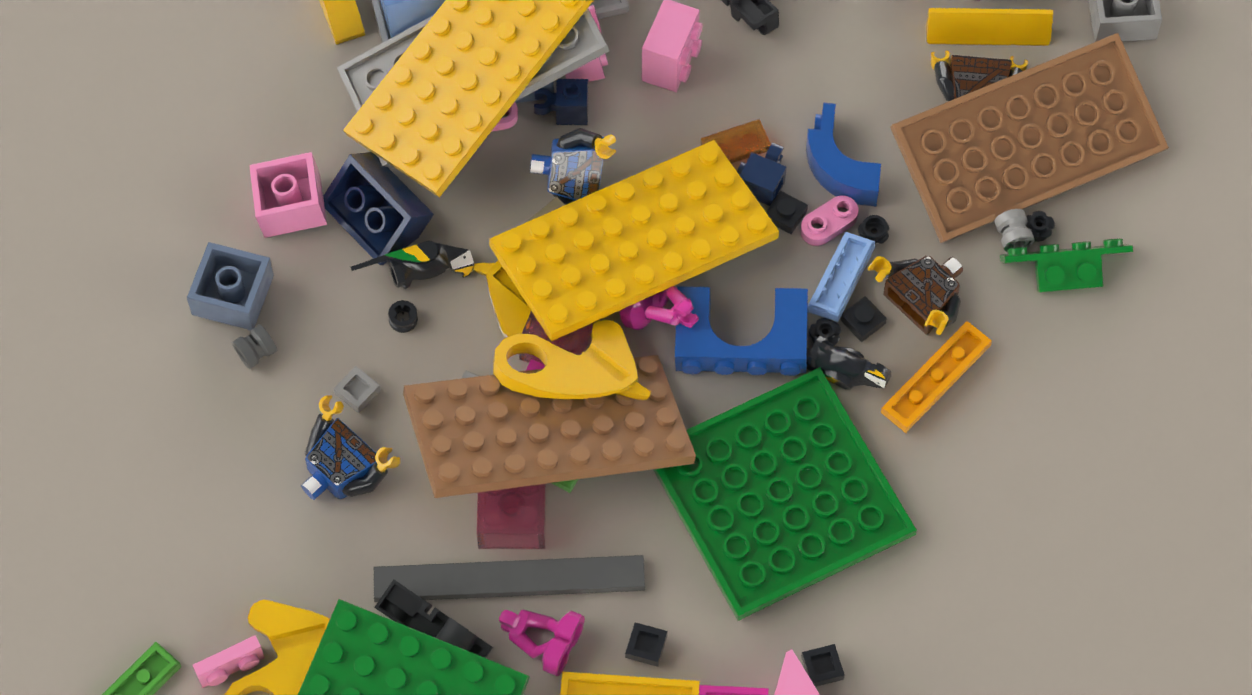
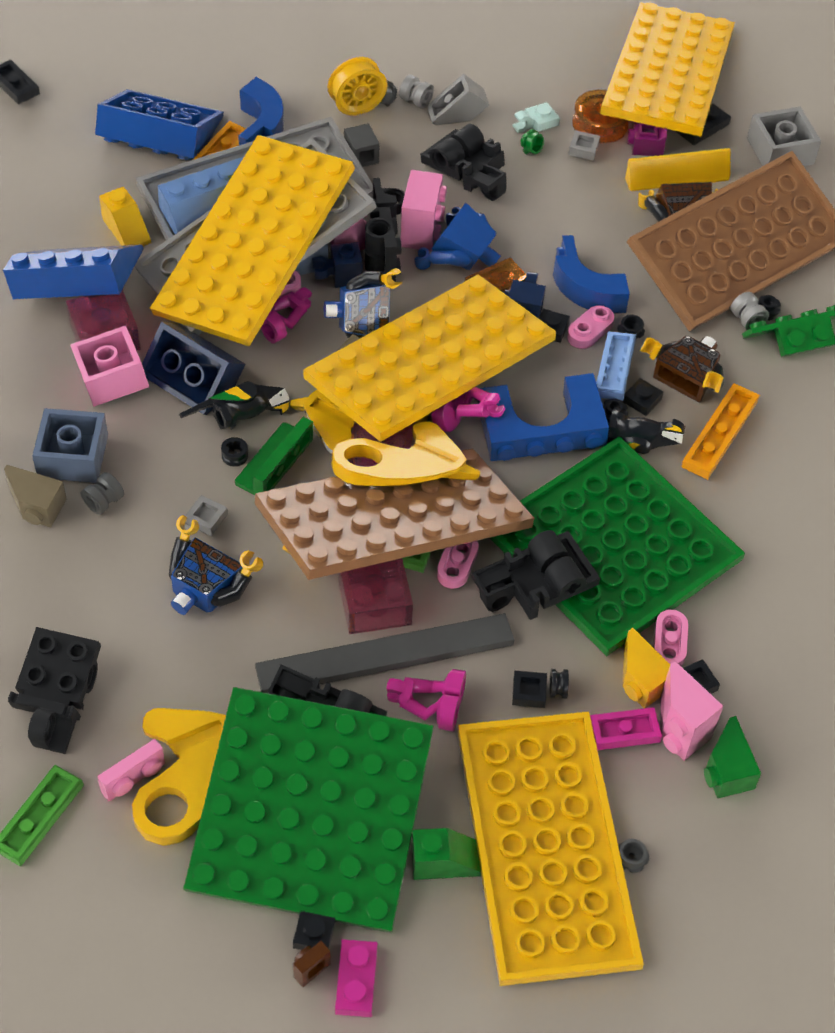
camera: 15 degrees left, 10 degrees down
(168, 556) = (54, 684): none -> black plate
(185, 338) = (36, 495): none -> dark tan slope
(268, 69) = (71, 271): none -> blue slope
(291, 131) = (101, 314): none -> clear pink brick
(444, 331) = (276, 457): none -> green panel
(510, 140) = (275, 325): none -> dark pink piece
(607, 488) = (457, 563): none -> bright pink plate
(616, 75) = (380, 231): none -> black plate
(678, 643) = (559, 683): none -> black bush
(687, 521) = (543, 574): none -> black plate
(709, 91) = (461, 242): none -> blue torso
(768, 645) = (643, 670): none -> yellow slope
(808, 616) = (671, 642): none -> bright pink plate

